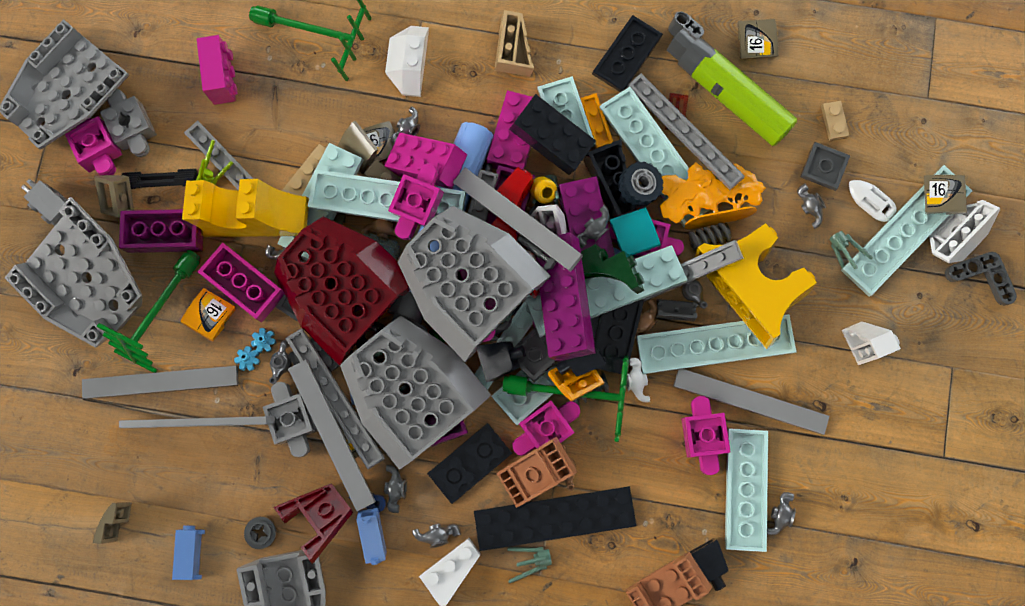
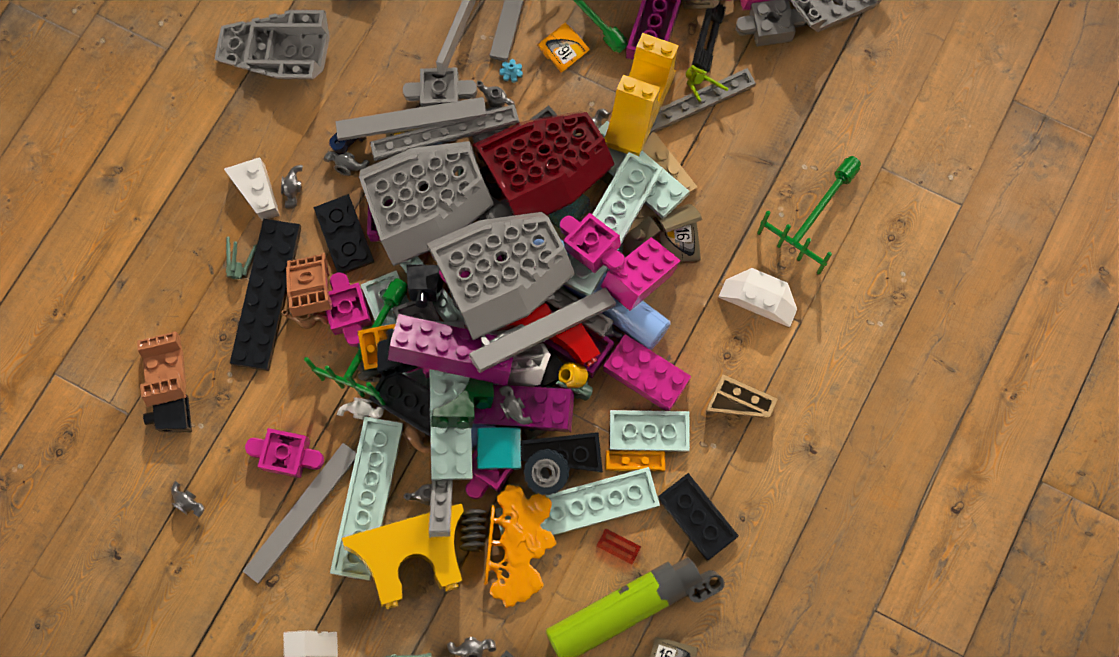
camera: 110 degrees right, 5 degrees down
(216, 69) = (800, 110): dark pink brick -> none
(241, 282) = (581, 81): dark pink brick -> none
(251, 536) = (352, 34): dark grey gear -> none
(265, 342) = (523, 88): medium azure plant -> none
(323, 510) = (347, 96): dark red wing -> none
(371, 536) = (310, 129): medium blue brick -> none
(407, 125) = (687, 273): flat silver piece -> none
(552, 135) = (626, 402): black brick -> none
(676, 310) = (414, 471): dark grey hinge -> none
(686, 132) = (592, 544): light grey tile -> none
(746, 490) = (221, 476): light aqua plate -> none

